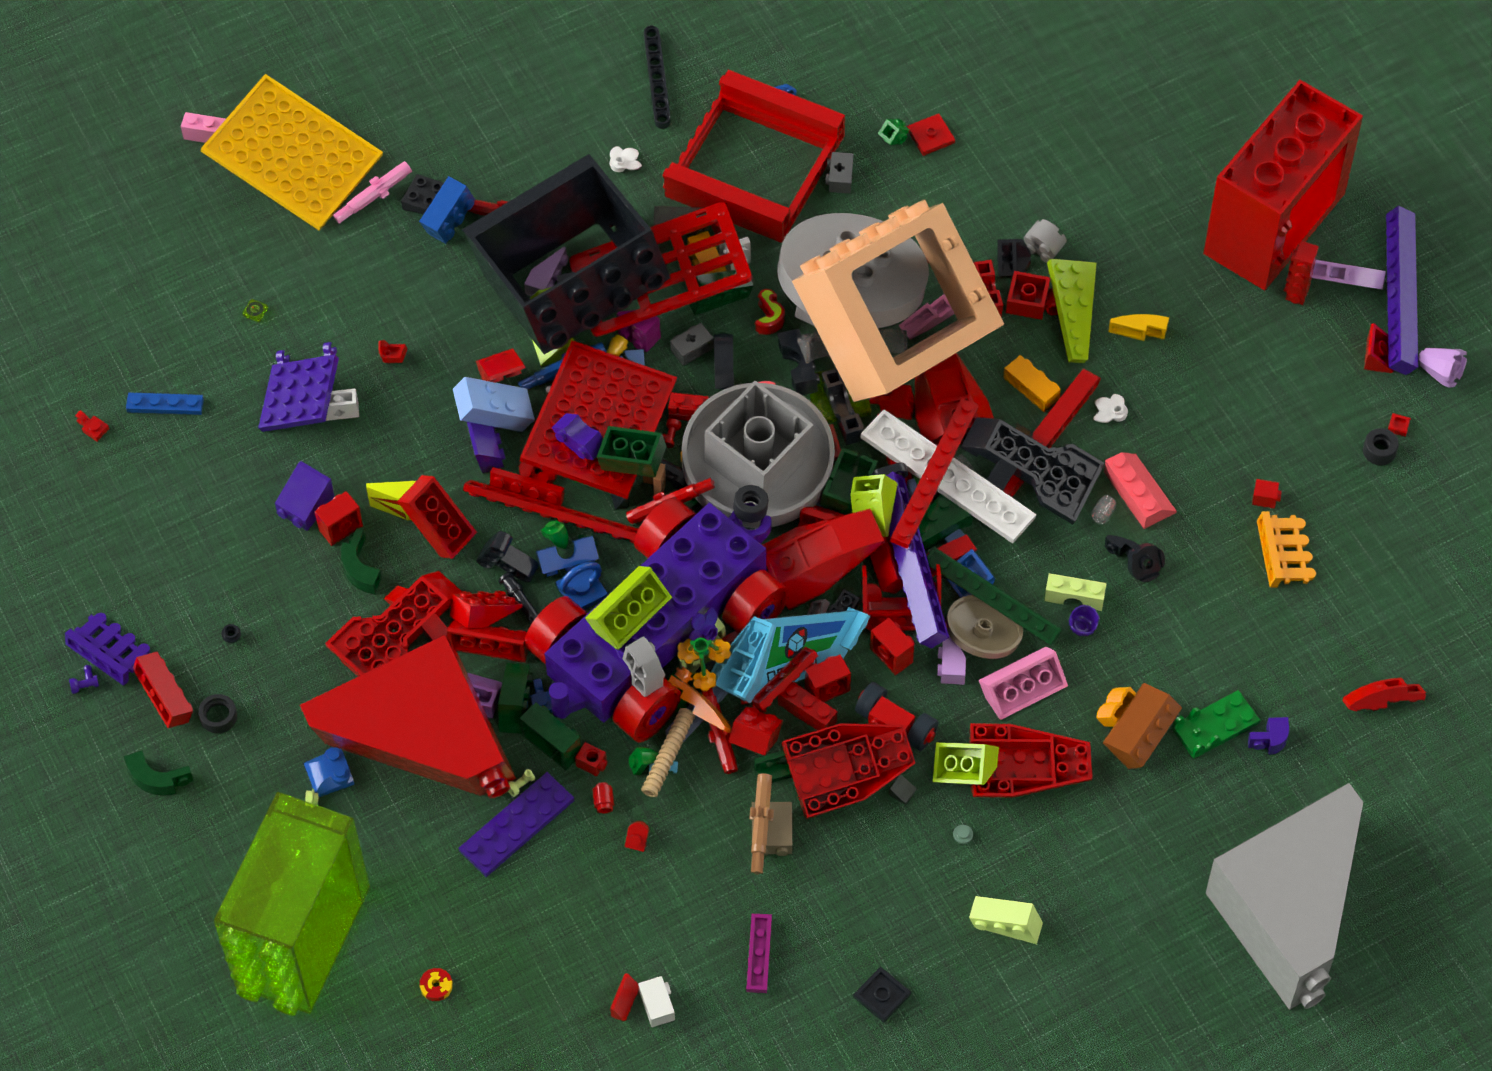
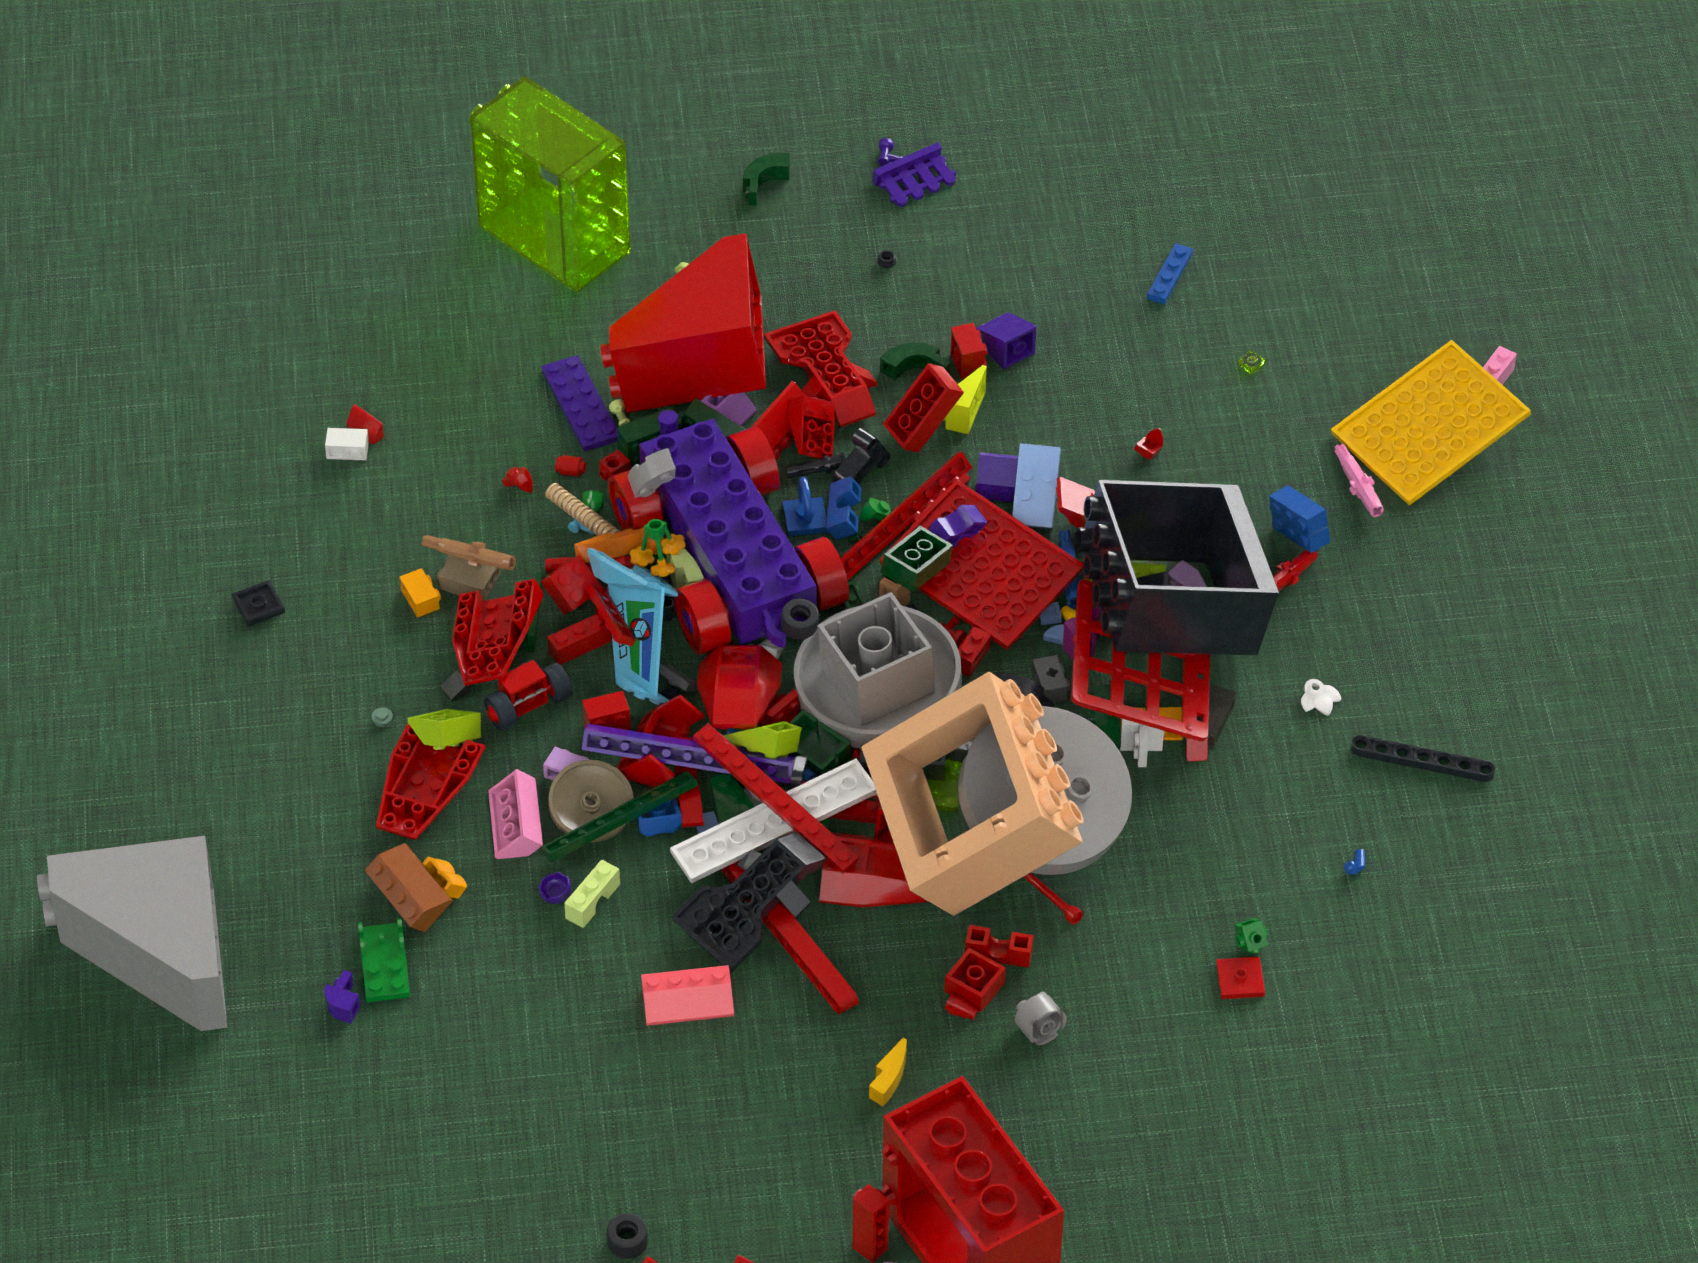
camera: 110 degrees right, 10 degrees down
(92, 427) = (1166, 219): red plate -> none
(162, 689) = (847, 197): red brick -> none
(214, 700) = (805, 240): black tyre -> none
(299, 390) = (1131, 359): dark purple plate -> none
(343, 405) = (1101, 386): white brick -> none
(420, 194) = (1342, 521): black brick -> none
(432, 976) = (455, 309): red piece -> none
(628, 607) = (718, 474): lime slope -> none
(684, 494) = (859, 588): red piece -> none
(704, 625) = (686, 552): dark purple plate -> none
(759, 953) = (351, 529): magenta plate -> none
(776, 111) = (1227, 750): red door -> none
(810, 860) = (419, 592): none -> light orange brick
(828, 678) = (598, 656): red brick -> none
(840, 172) = (1218, 874): dark grey brick -> none
(927, 317) = (1000, 912): bright pink slope -> none
(1007, 918) = (271, 713): yellowish green wedge -> none
(1012, 256) = (1033, 983): black slope -> none
(1032, 383) = (863, 948): light orange brick -> none
(1074, 294) = (957, 1022): lime wing -> none
(1103, 510) = (677, 955): clear brick -> none
(1110, 409) = (799, 1010): white plate -> none
(1119, 545) = (628, 951): black slope -> none
(1137, 558) = (592, 960): black plate -> none
(1266, 493) = (620, 1101): red brick -> none
(1274, 541) = (541, 1085): light orange fence -> none
(1379, 693) = (331, 1112): red slope -> none

